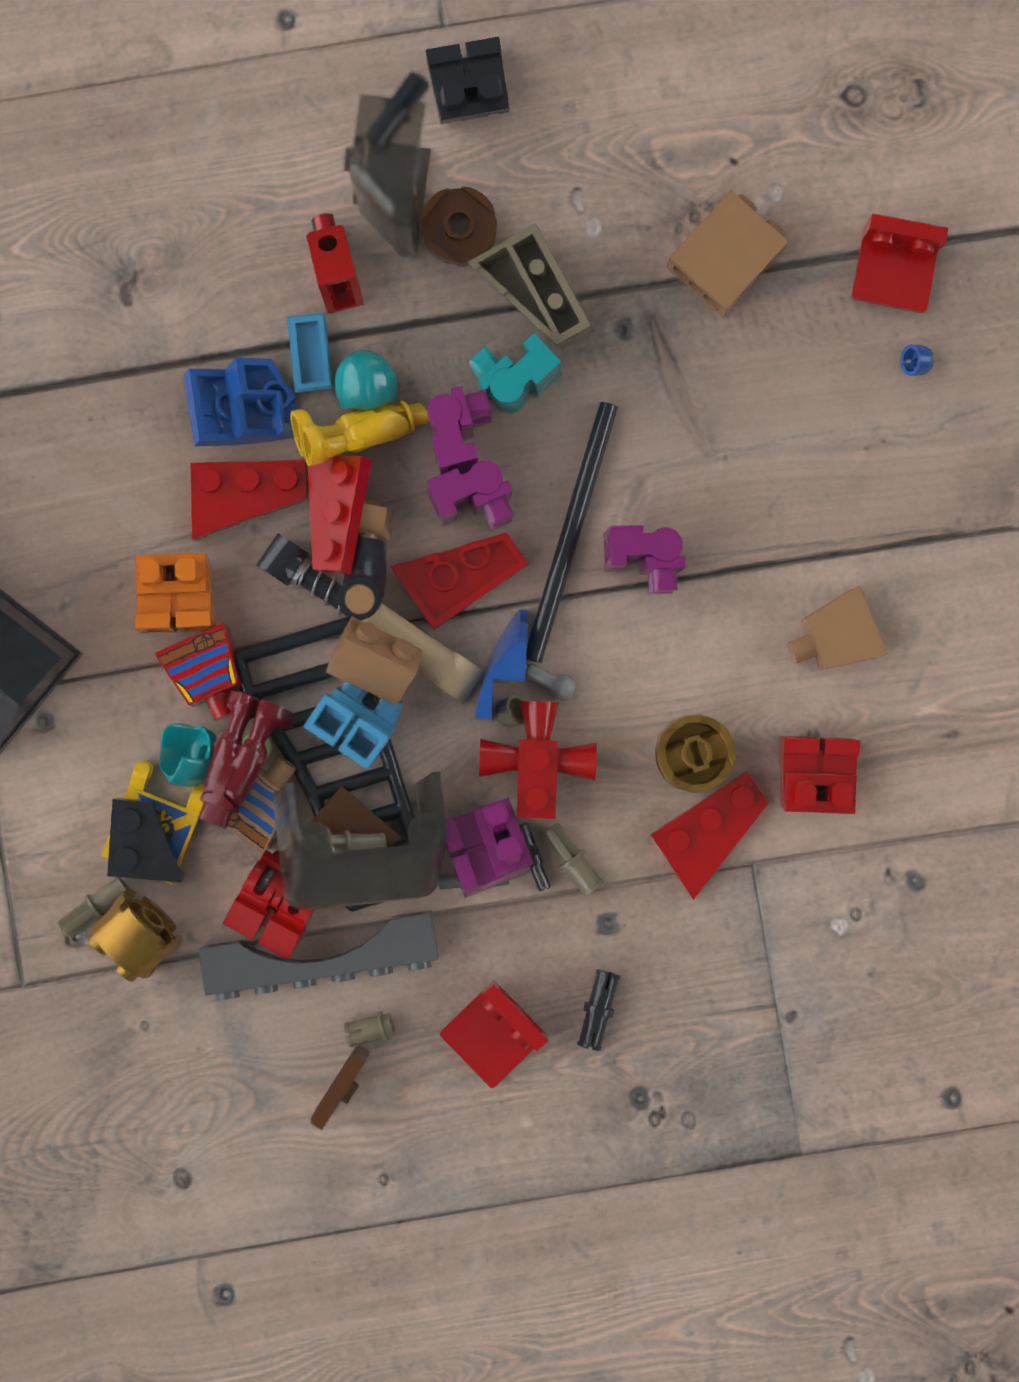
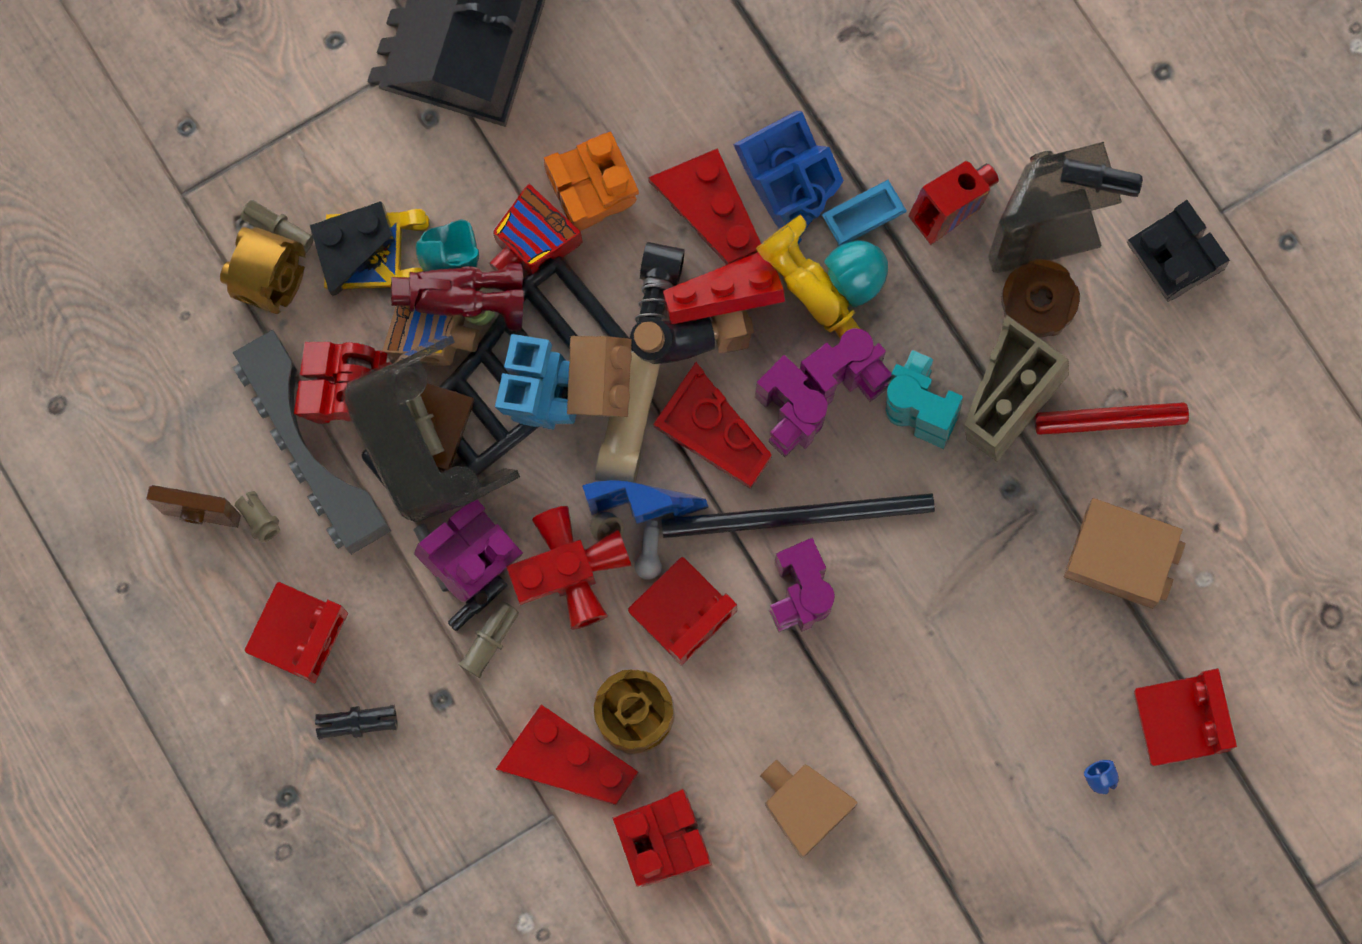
camera: 75 degrees right, 10 degrees down
(597, 210) = (1111, 418): none -> red axle
(617, 672) = (682, 610): none -> red bracket

